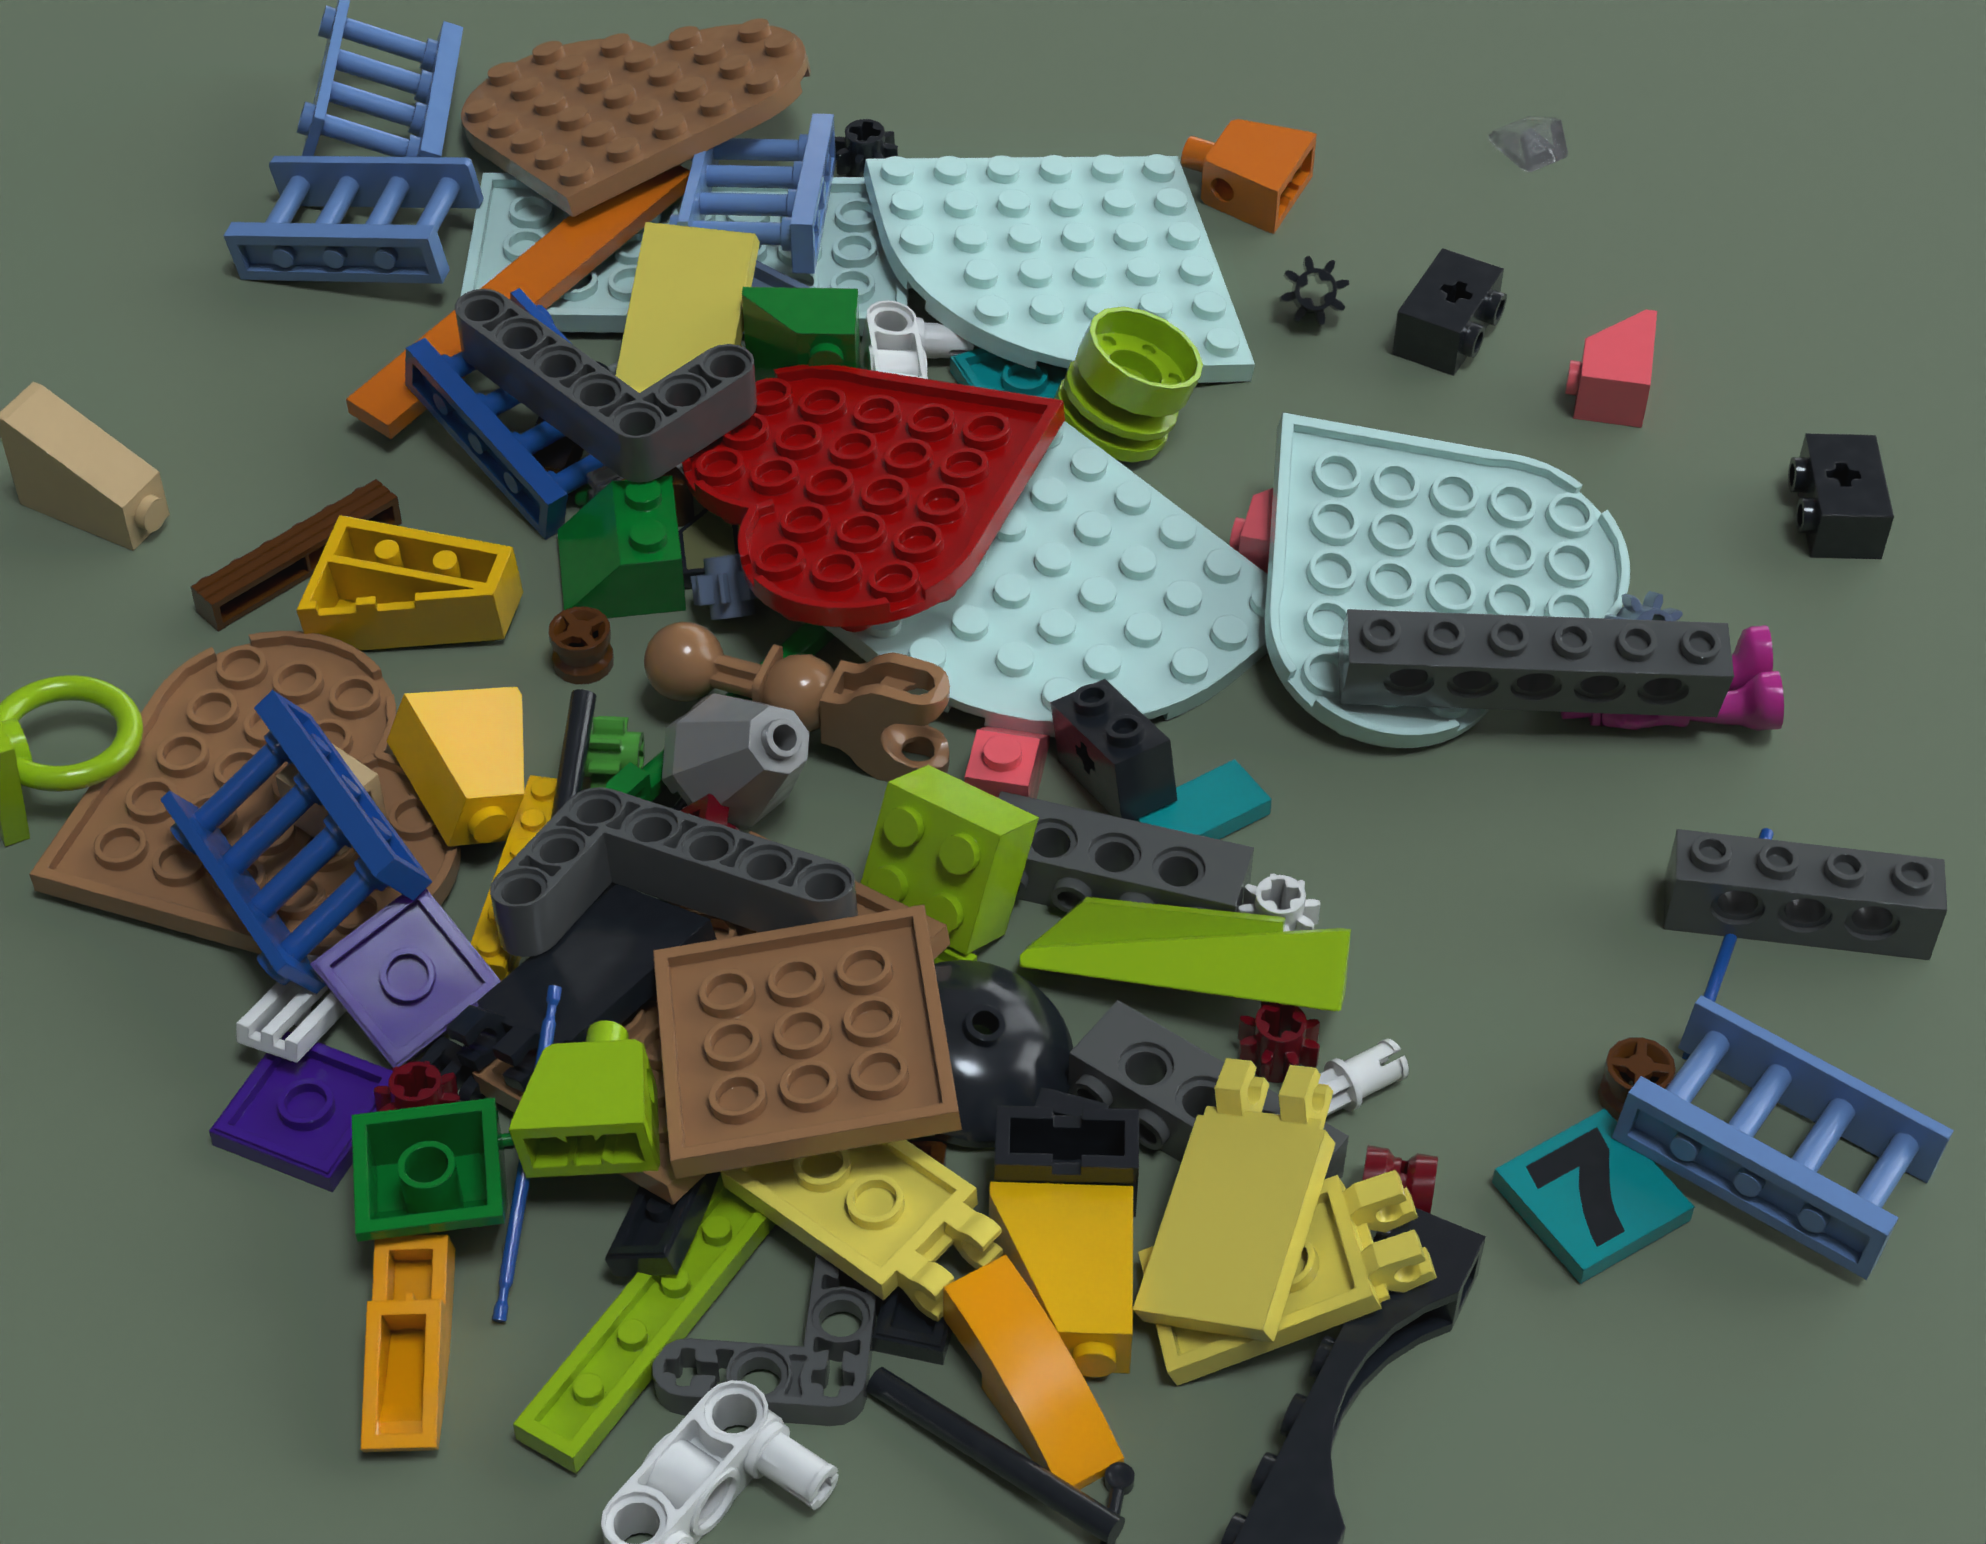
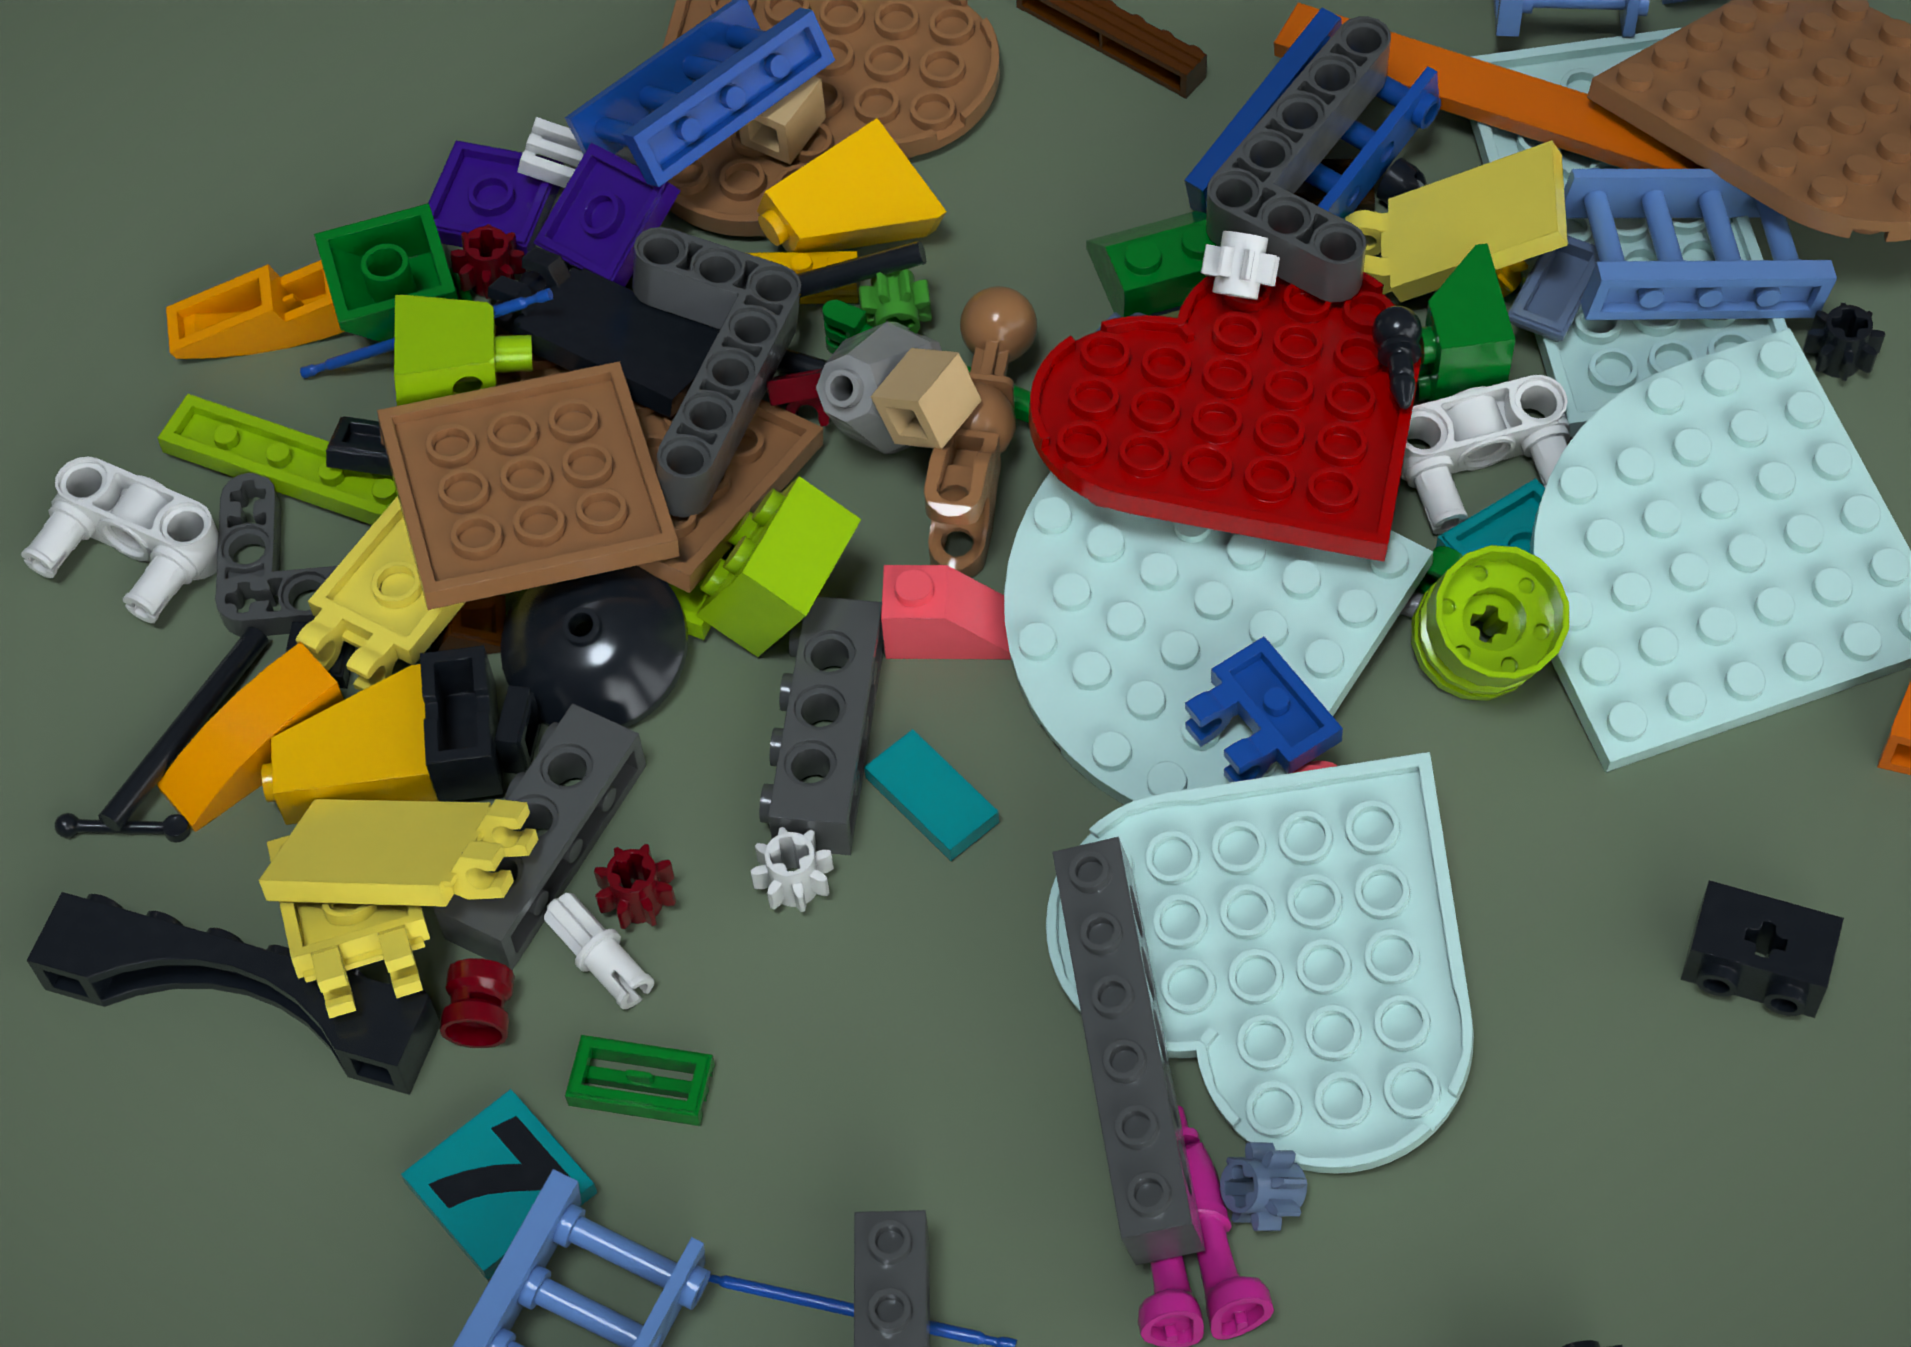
camera: 85 degrees right, 10 degrees up
(409, 587) = (1061, 103): yellow wedge -> none
(581, 645) = (1037, 257): reddish brown wheel -> none
(719, 440) = (1240, 265): none -> white gear
(806, 681) = (926, 398): none -> tan brick
(822, 362) = (1397, 338): none -> black bar
(1114, 751) = (962, 692): black brick -> none
(1194, 520) = (1273, 703): none -> blue plate
(1197, 952) = (710, 804): lime wedge -> none
(1322, 276) = (1745, 802): black gear -> none
(1474, 1112) = (638, 1104): none -> green tile
(1615, 372) = (1714, 1143): coral slope -> none
(1628, 1062) = (625, 1196): reddish brown wheel -> none

